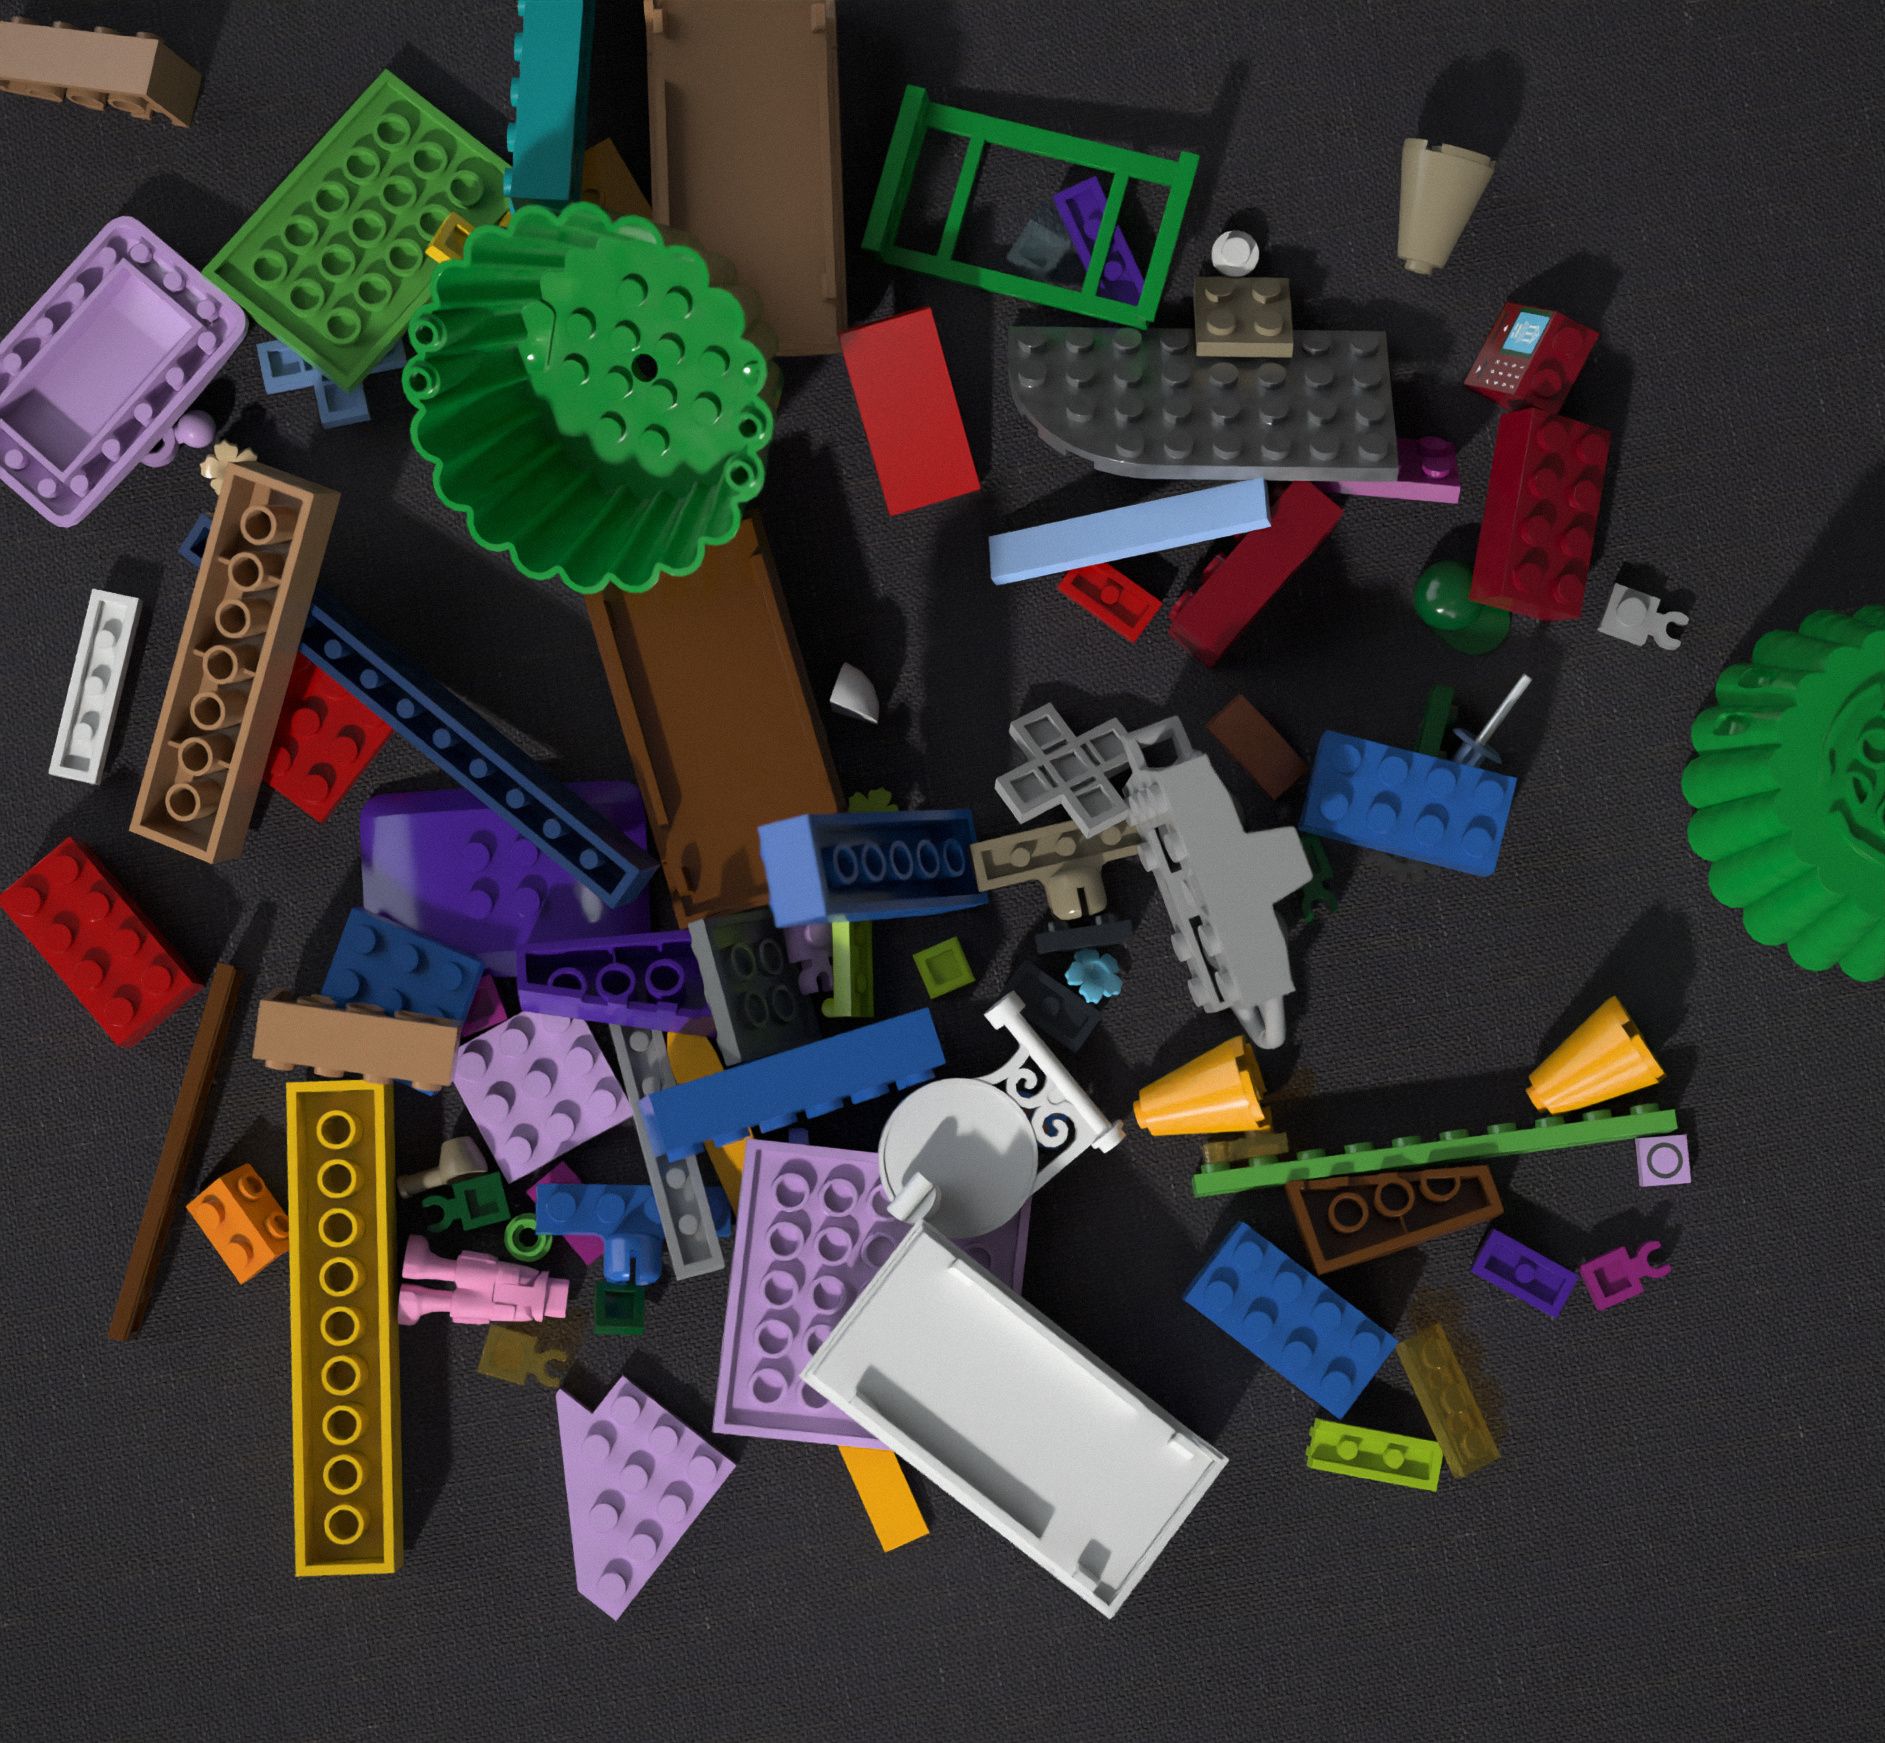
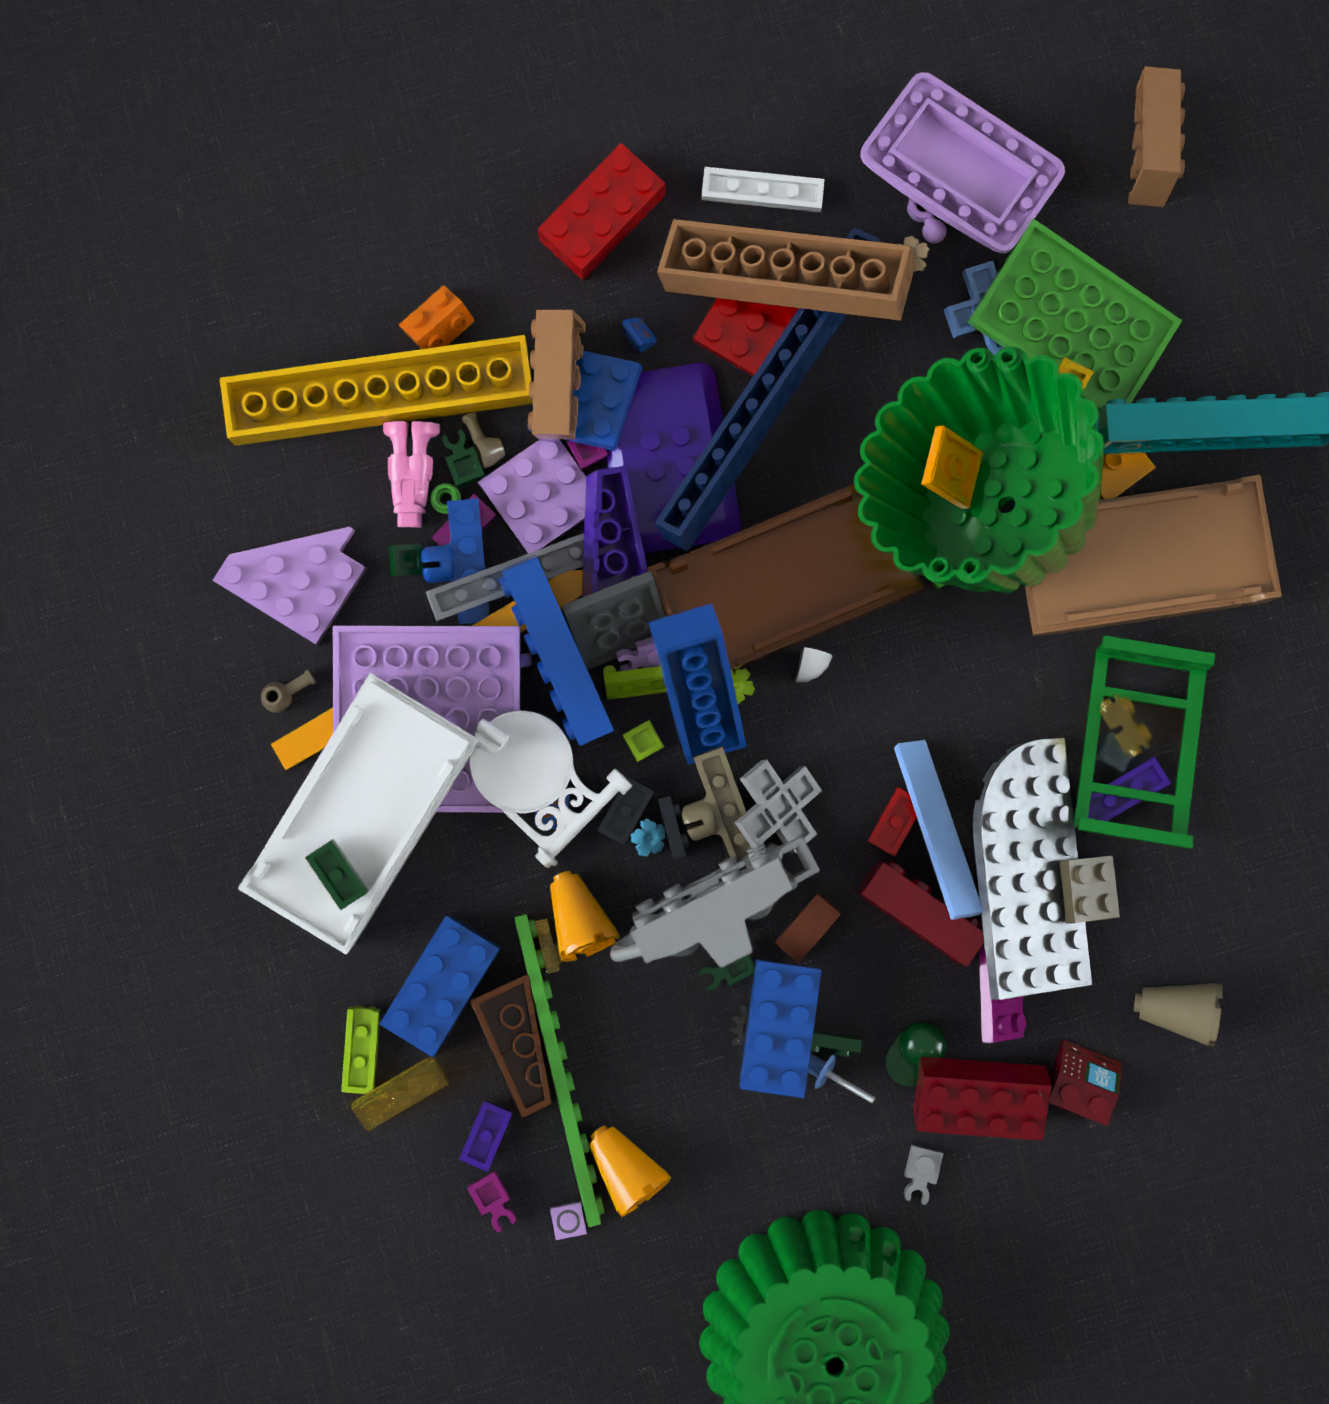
camera: 80 degrees right, 0 degrees up
(176, 1153) = (476, 275): reddish brown tile -> none
(303, 906) = (638, 334): none -> blue slope
(513, 1356) = (369, 497): clear yellow plate -> none
(578, 442) = (952, 467): none -> light orange plate
(805, 1521) = (285, 692): none -> dark tan bar
(909, 410) = (1000, 678): red tile -> none
(983, 235) = (1121, 714): none -> clear yellow hinge
(1106, 1459) = (337, 874): none -> dark green plate
(1235, 254) = (1131, 880): white plate -> none

